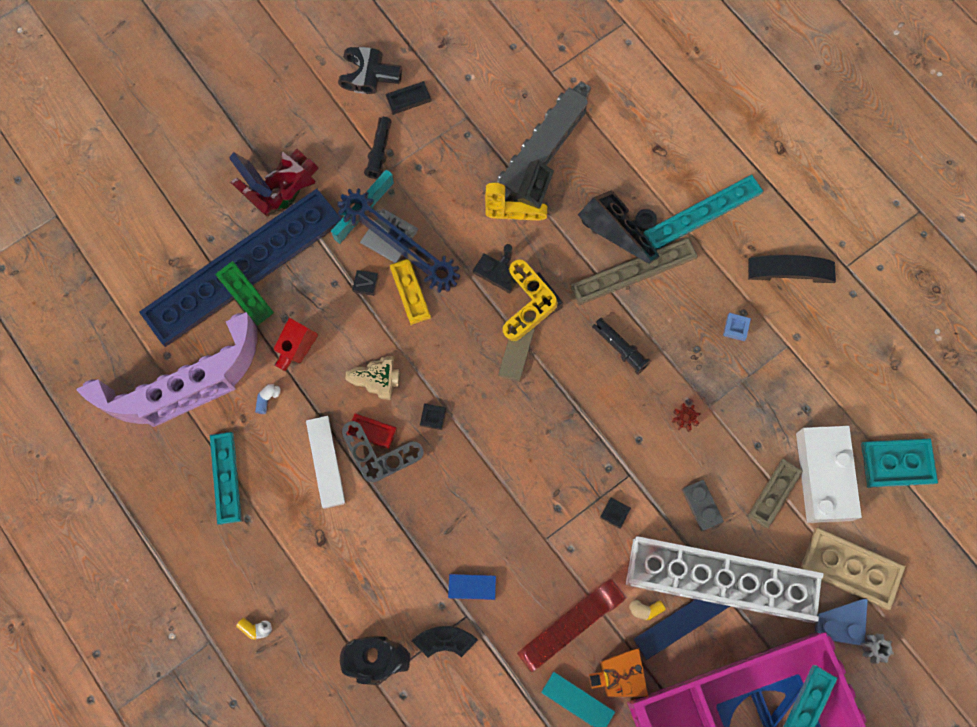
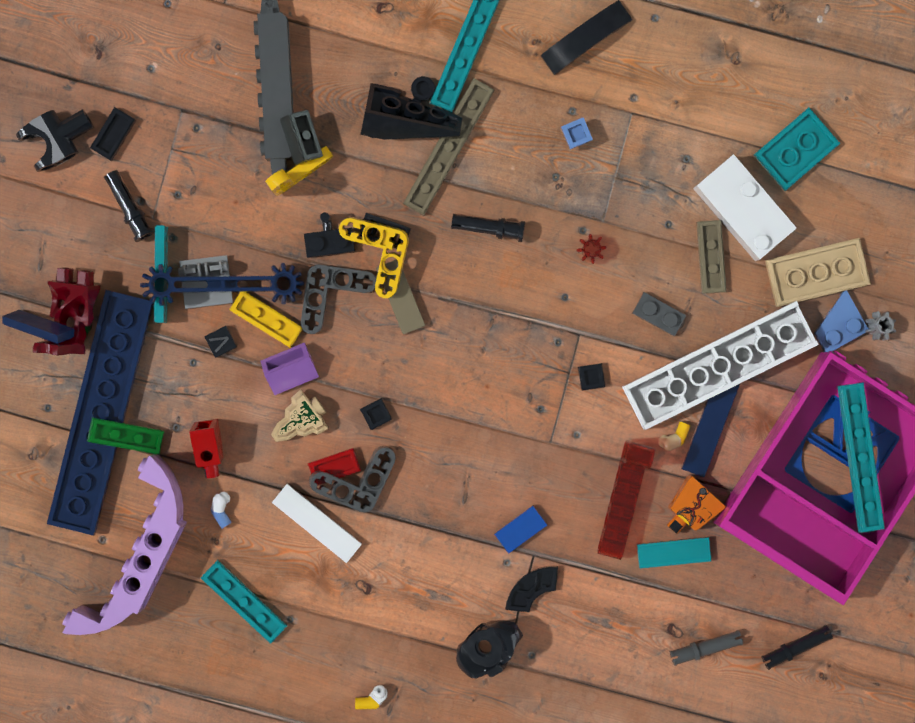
camera: 40 degrees left, 15 degrees up
(397, 336) = (289, 368): none -> medium lavender brick
(473, 299) = (329, 282): none -> dark grey beam

